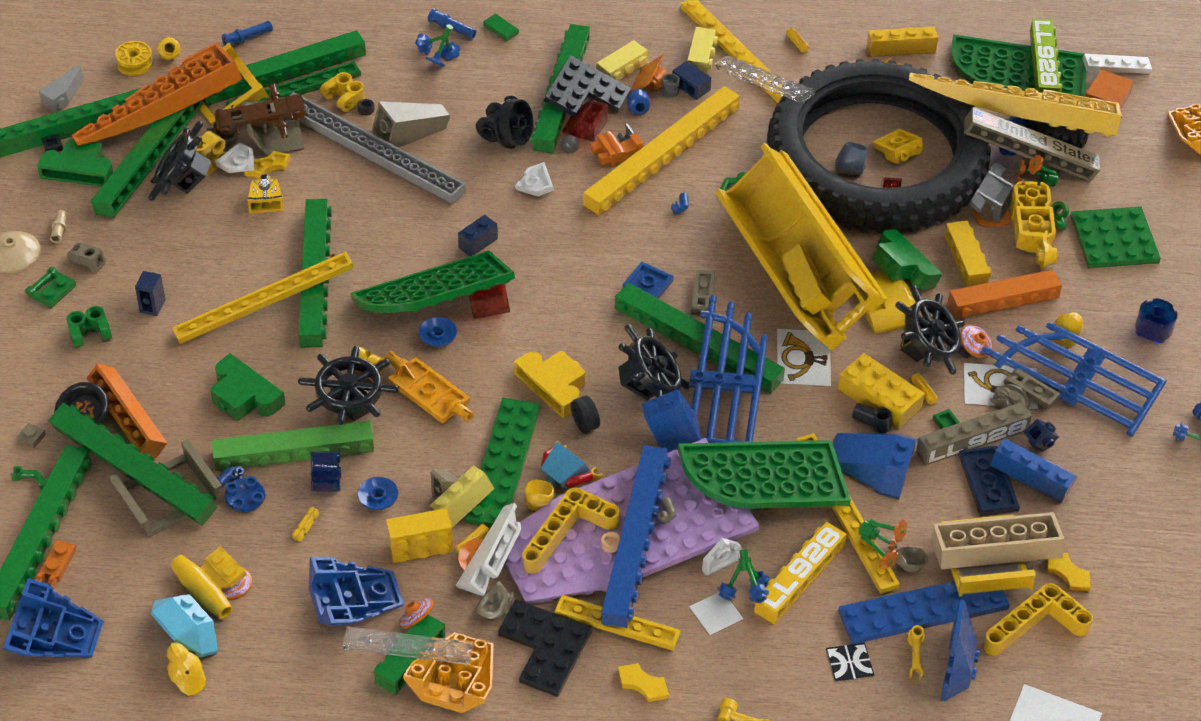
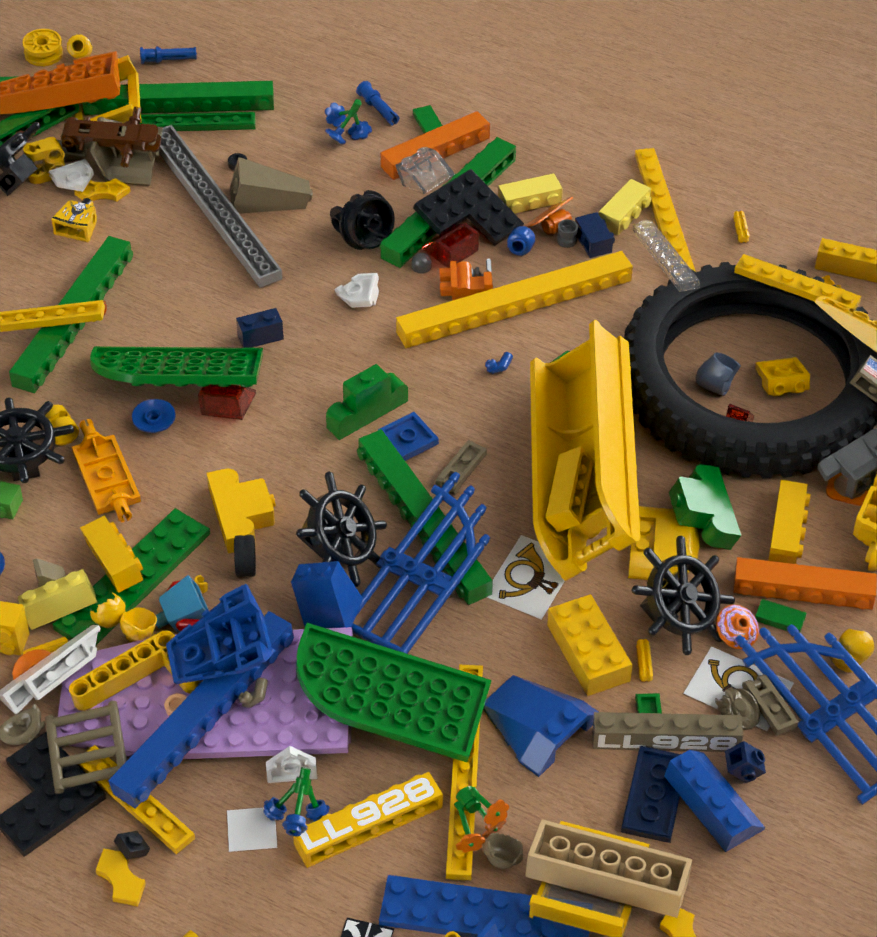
camera: 25 degrees right, 0 degrees up
(342, 85) = (223, 137): yellow piece -> none
(481, 447) = (113, 553): none -> yellow brick
(511, 491) = (109, 612): none -> yellow hair
(521, 45) = (445, 140): none -> orange brick
(529, 68) = (423, 170): none -> clear slope
(572, 577) = (54, 743): none -> dark tan bar
(601, 265) = (365, 400): none -> green brick
(626, 479) = (223, 641): none -> blue wedge
(638, 655) = (131, 844): none -> black plate
(877, 70) = (793, 282): none -> yellow plate
(878, 418) = (565, 673): black piece -> none
(999, 324) = (779, 615): none -> green tile

